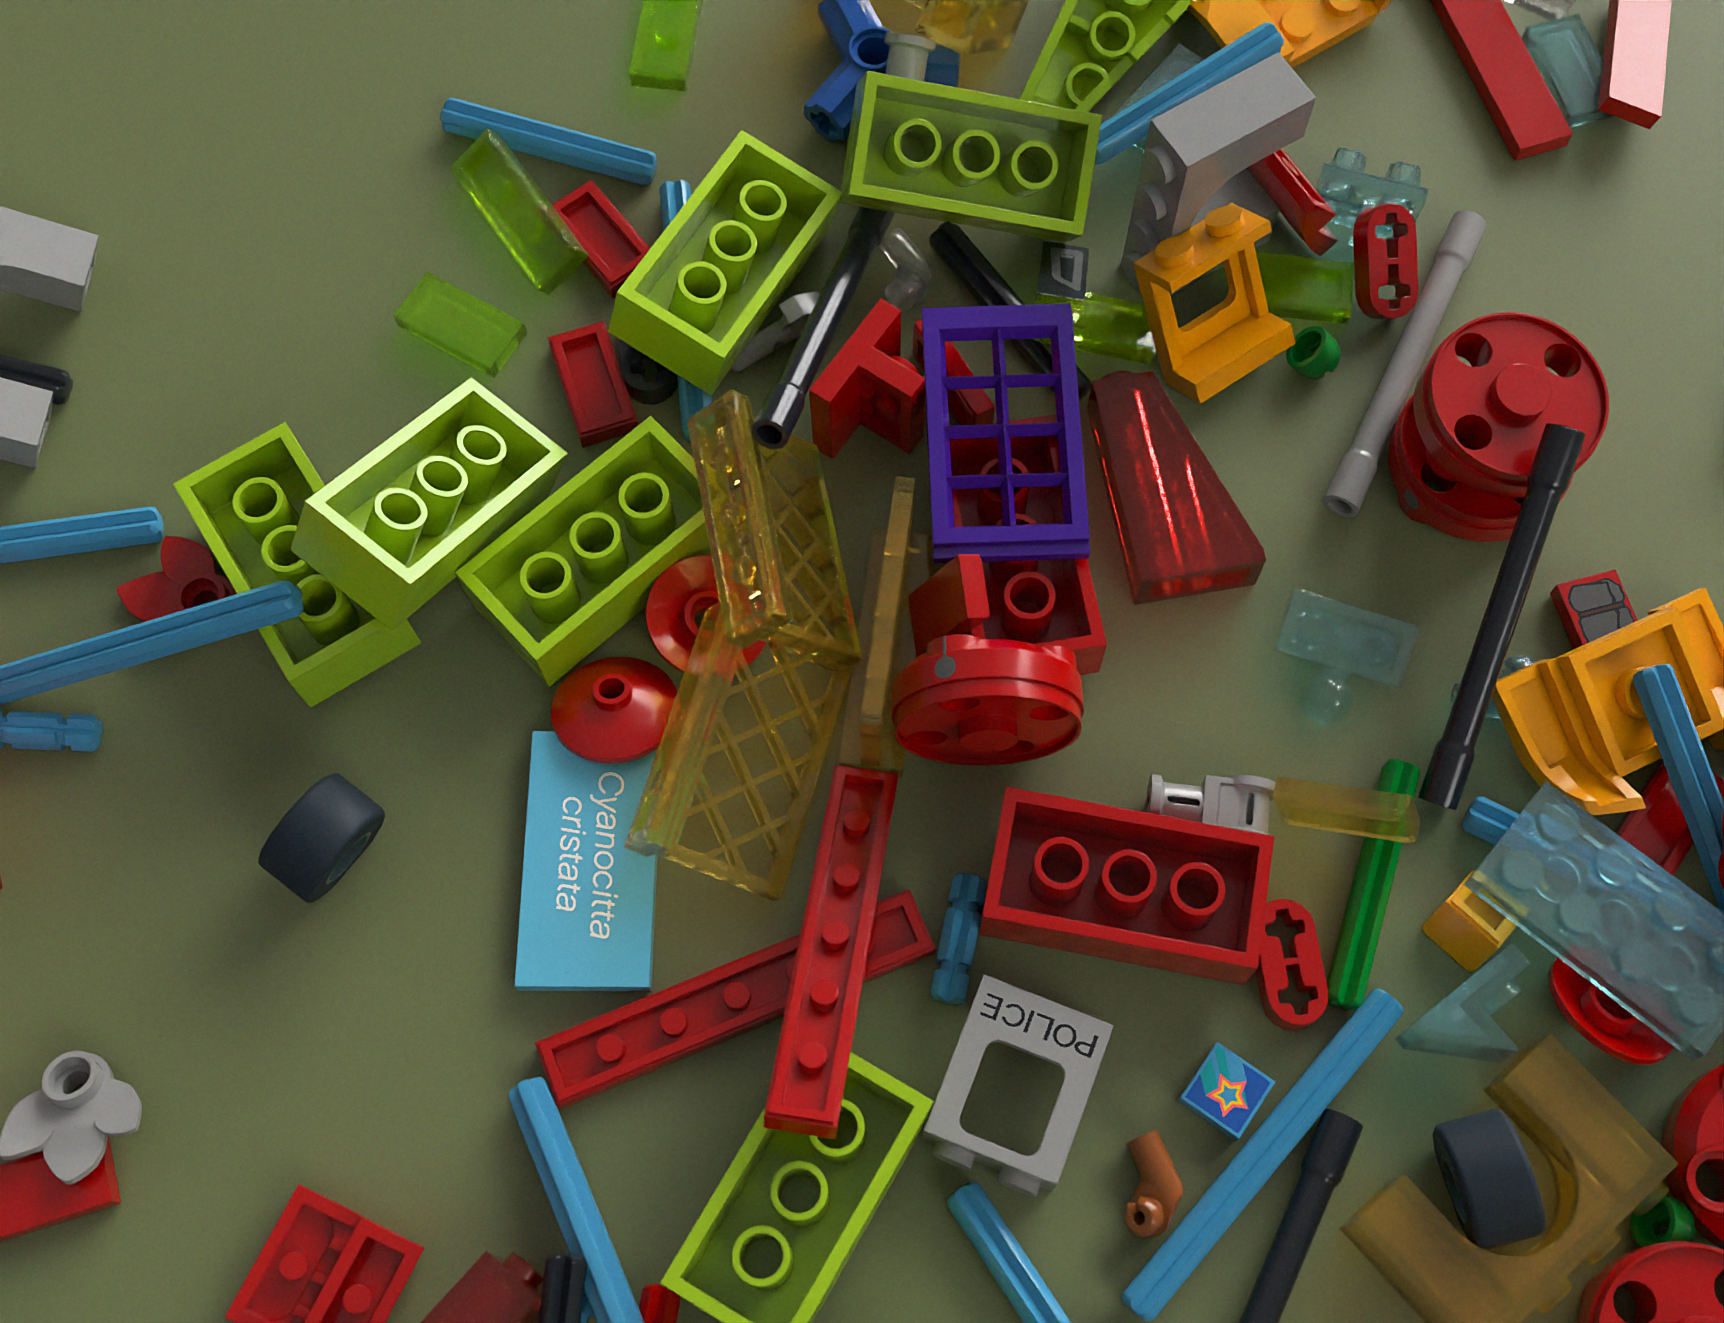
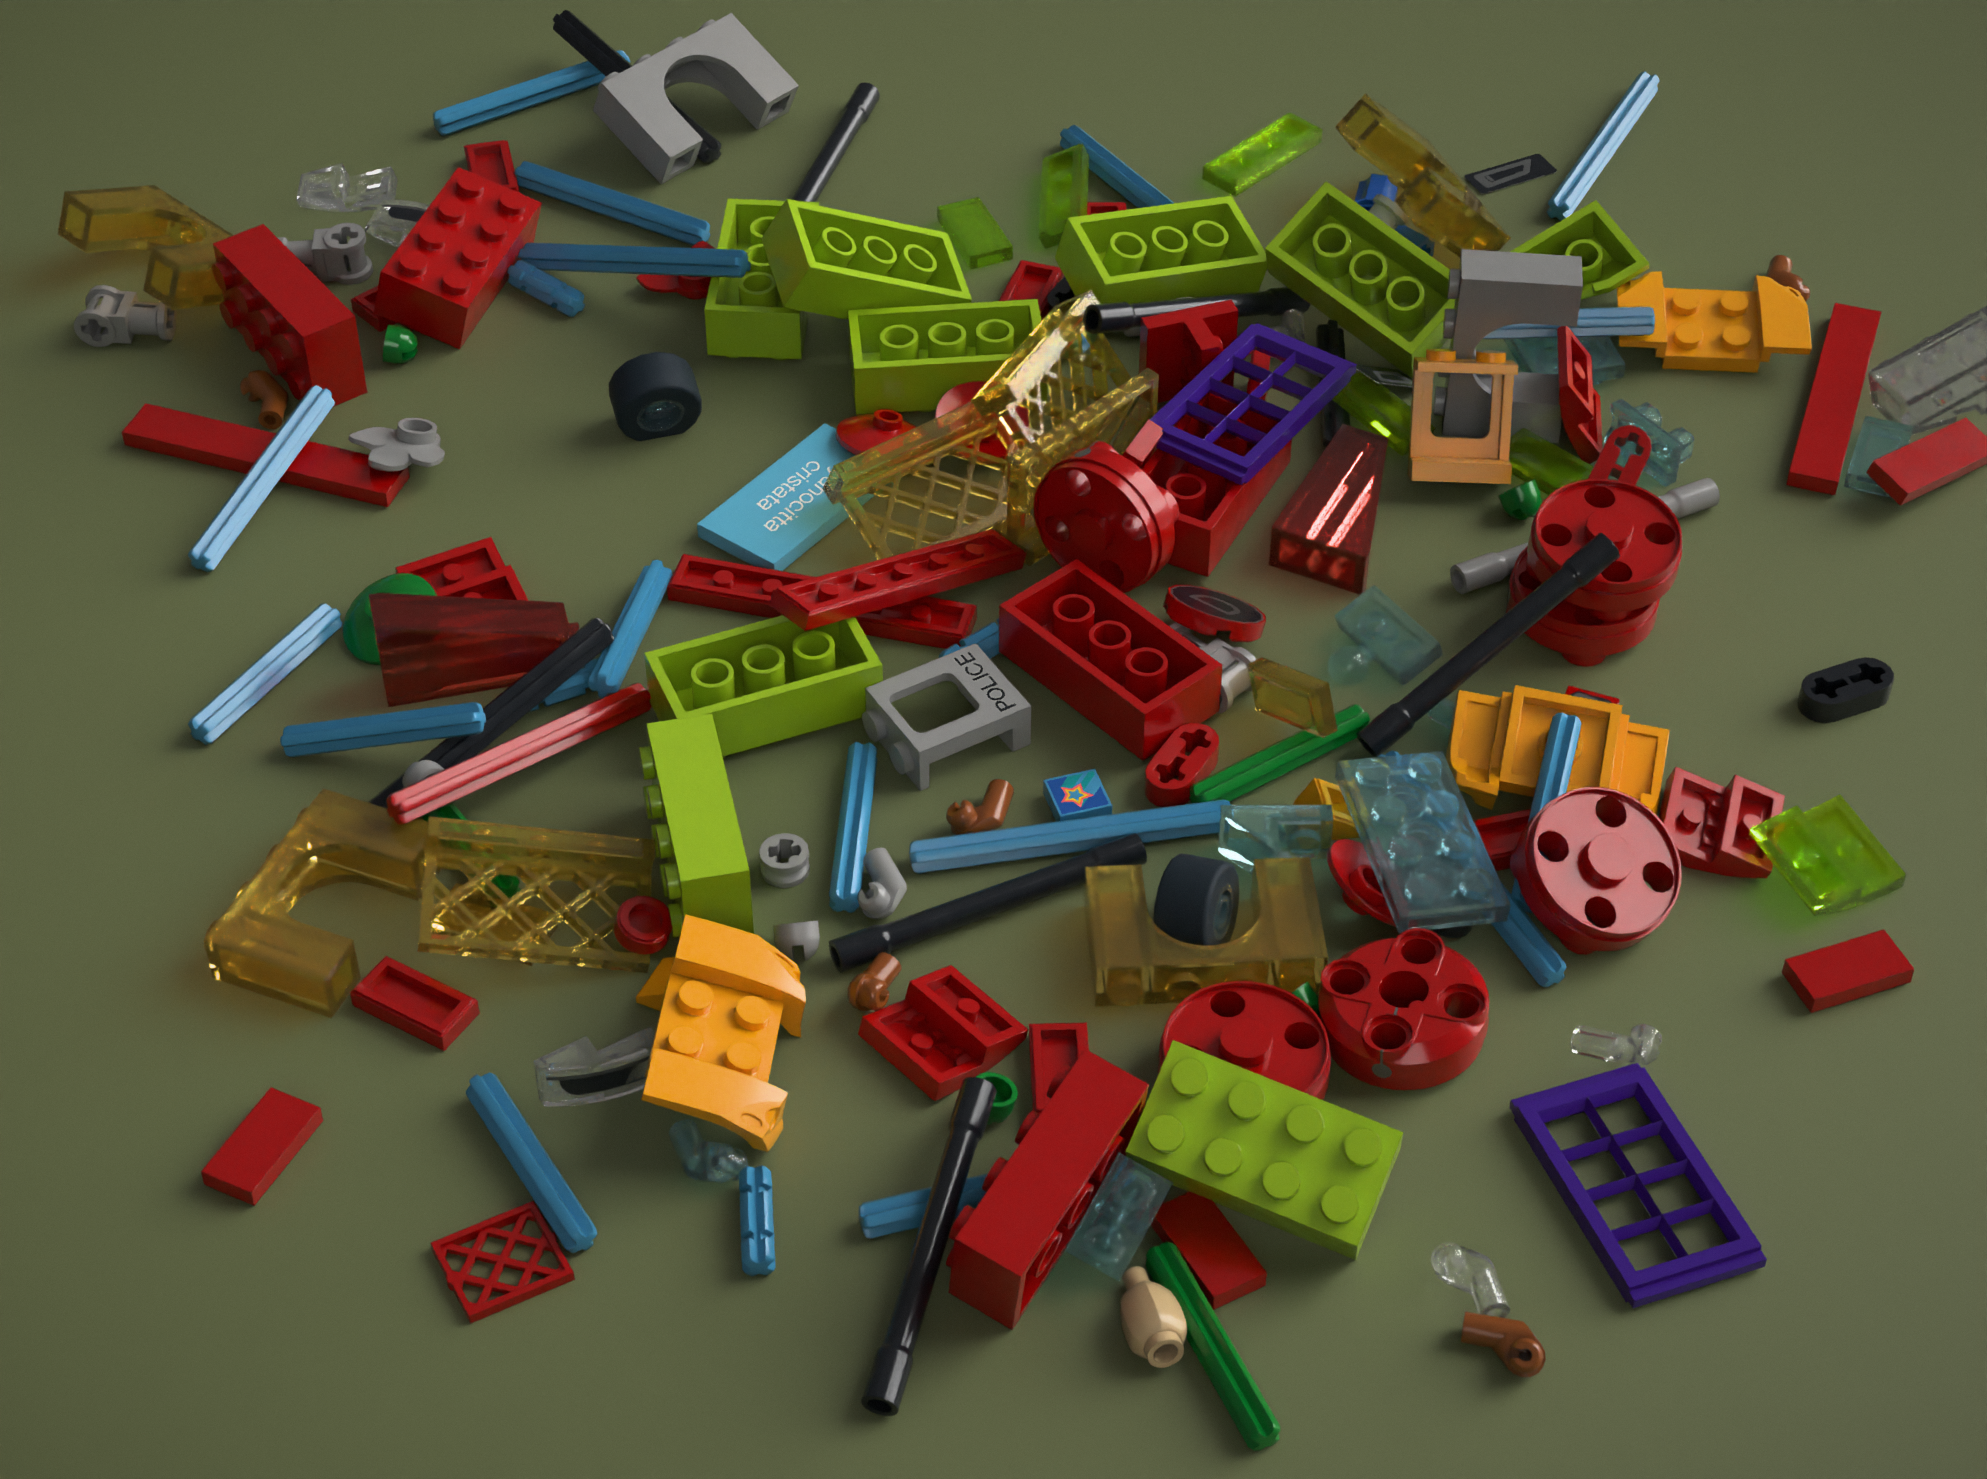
camera: 35 degrees right, 25 degrees down
(184, 225) = (854, 115): none -> black piece
(1168, 736) = (1214, 611): none -> tile

